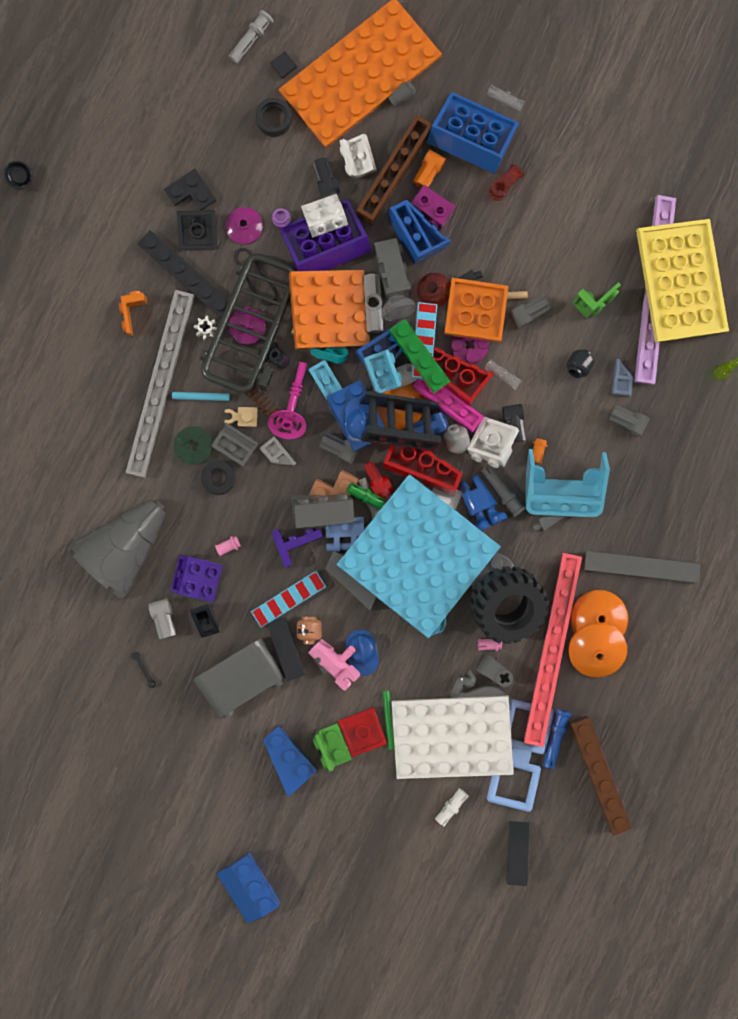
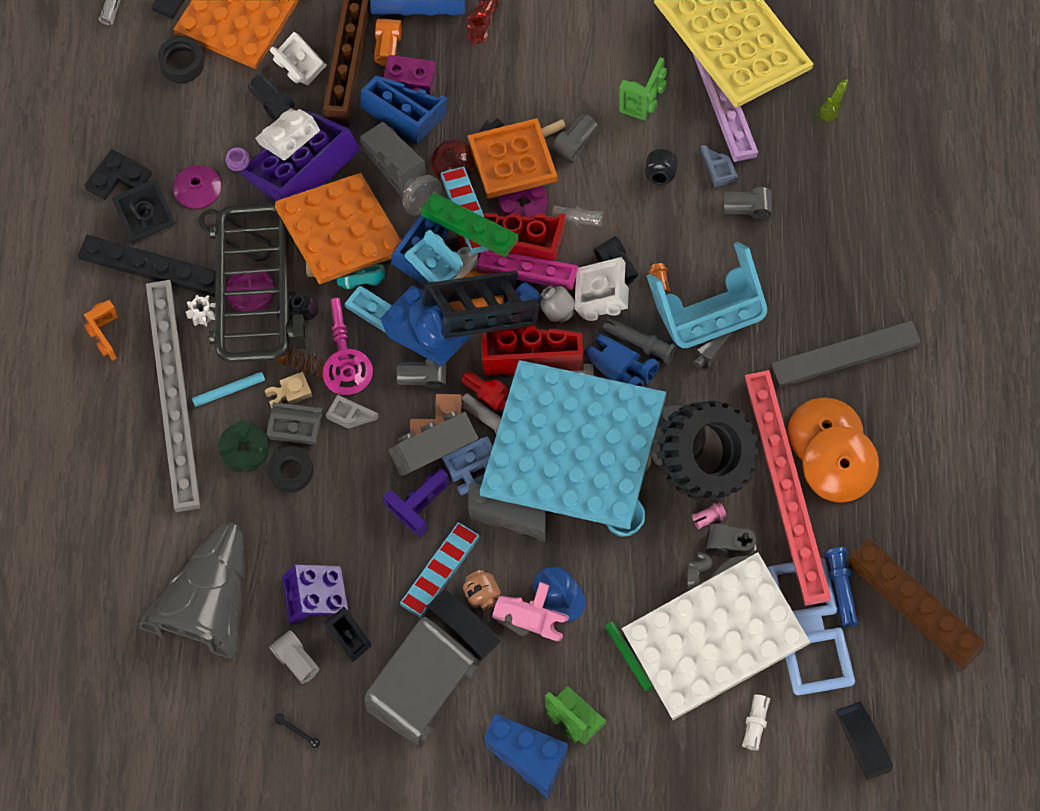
camera: 20 degrees left, 20 degrees down
(228, 545) = (337, 540): bright pink pin -> none
(362, 732) = (604, 684): red tile -> none
(365, 495) = (478, 407): green pin -> none
(372, 291) = (382, 193): light grey piece -> none

